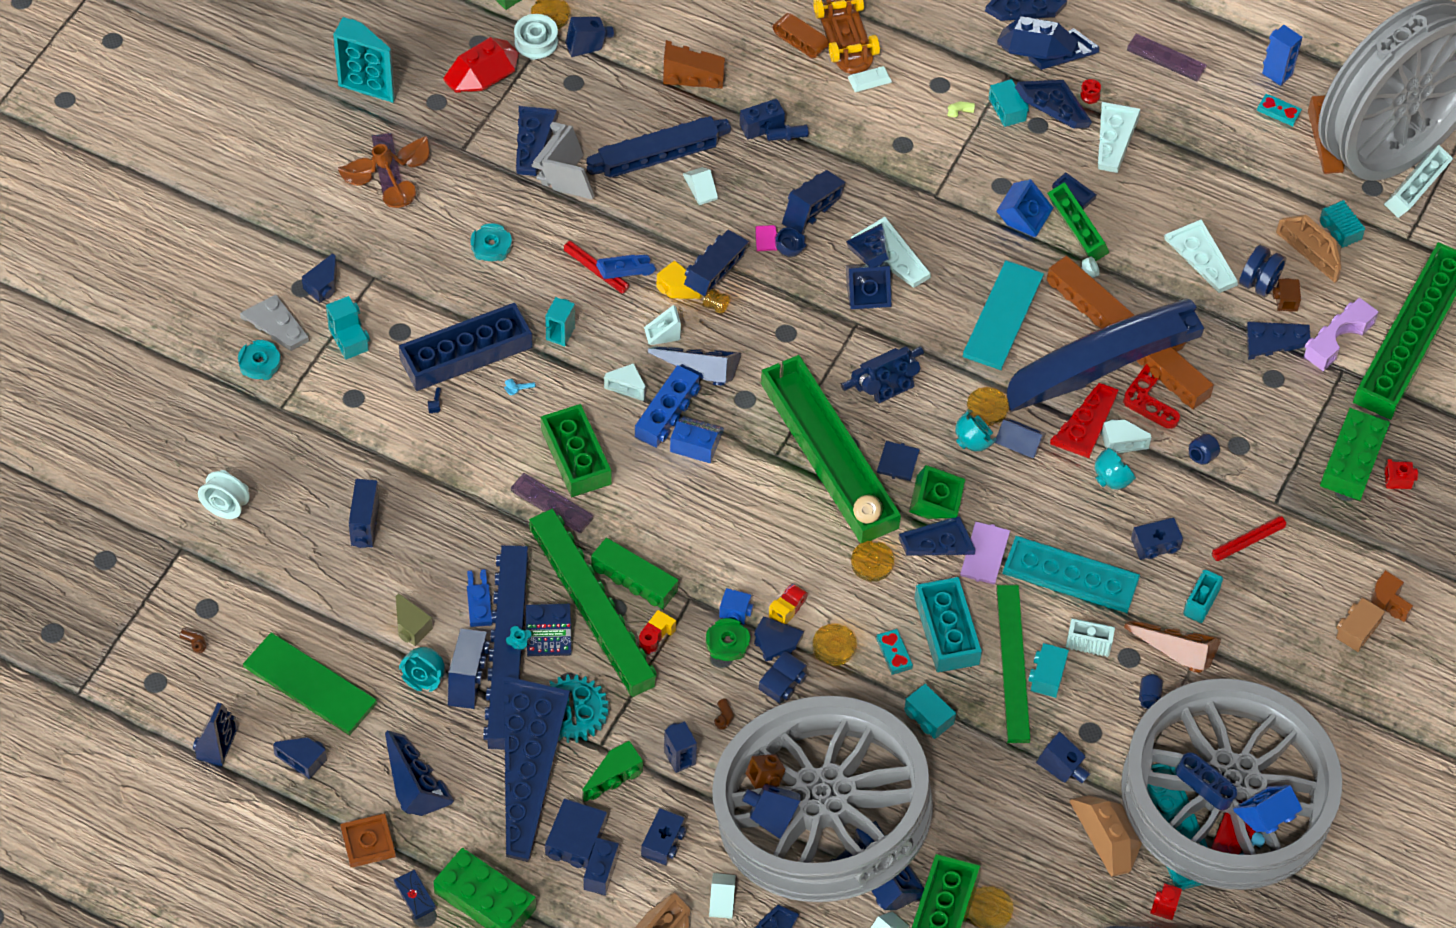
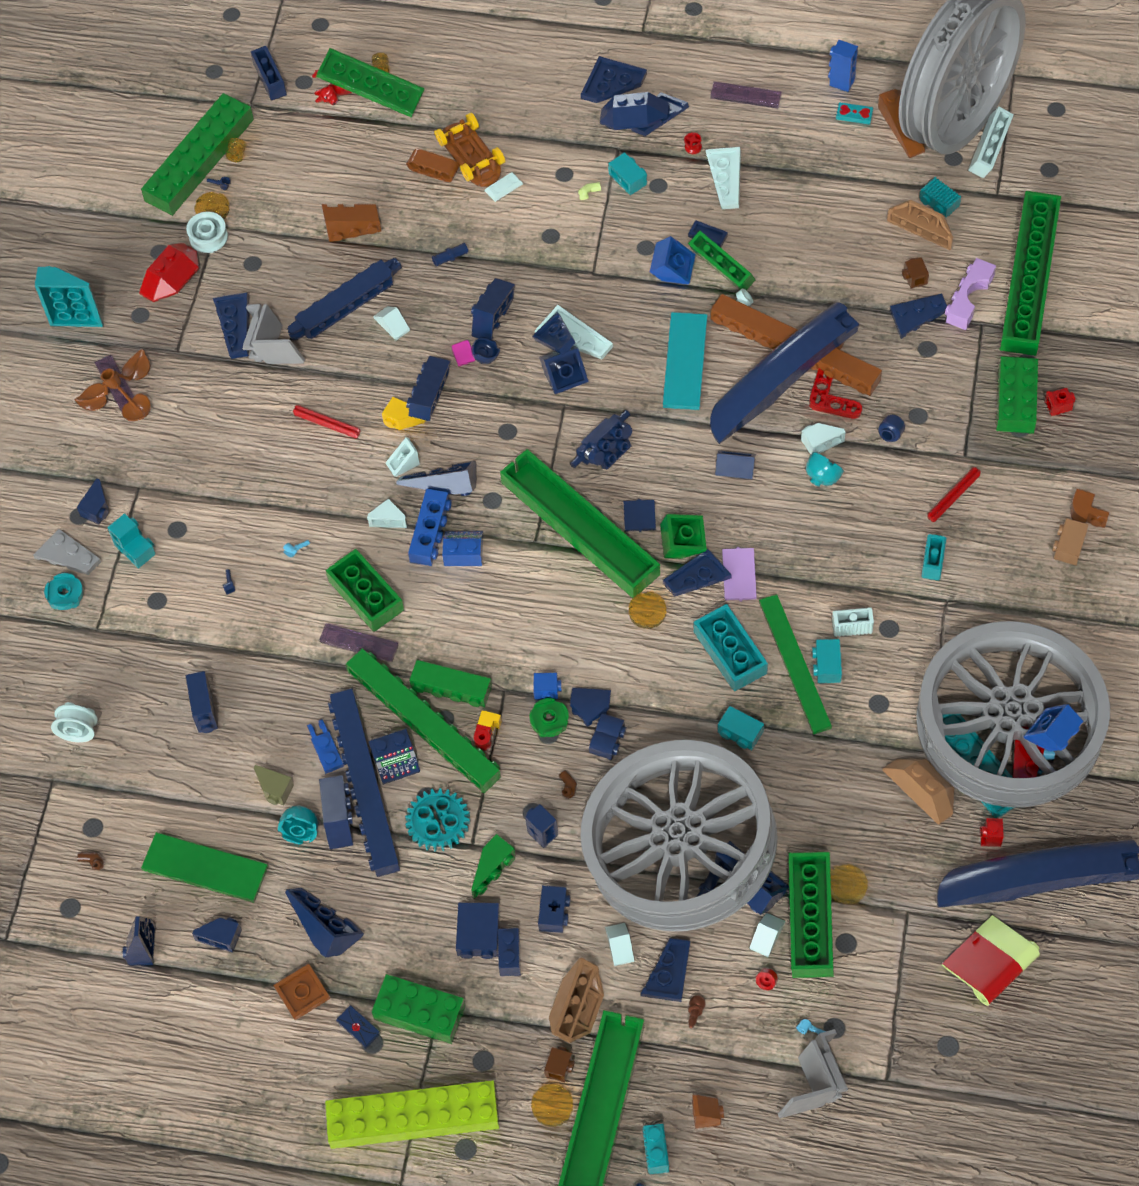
camera: 10 degrees left, 5 degrees up
(465, 346) = (239, 526): dark blue brick -> none
(493, 252) = (231, 436): teal plate -> none
(518, 643) = (368, 777): teal plate -> none
(531, 736) = (411, 853): dark blue wing -> none
(560, 321) = (313, 480): teal piece -> none
(586, 35) = (250, 218): dark blue torso -> none
(625, 266) = (351, 414): blue hinge -> none
(716, 301) = (440, 421): clear yellow wheel -> none
(758, 118) = (423, 248): dark blue brick -> none
(765, 770) = (624, 828): reddish brown brick -> none
(772, 808) = (641, 858): dark blue torso -> none
(788, 604) = (589, 670): leg -> none
(834, 644) = (640, 693): clear yellow tile -> none
(868, 509) = (630, 567): tan head -> none
(894, 652) = (692, 684): teal tile -> none
(973, 433) = (695, 472): teal cylinder -> none
(988, 404) = (698, 444): clear yellow tile -> none
(1055, 100) = (666, 160): dark blue plate -> none
(1063, 760) = (866, 736): dark blue torso -> none
(1071, 574) = (817, 570): teal tile -> none
(1086, 424) = (786, 434): red wing -> none
(1150, 690) = (917, 653): dark blue brick -> none
(1157, 538) = (878, 518): dark blue brick -> none
(1189, 650) = (937, 607): wedge -> none
(1201, 252) = (832, 257): light aqua wing -> none
(1212, 791) = (999, 728): dark blue beam -> none
(1262, 270) = (889, 258): dark blue wheel -> none

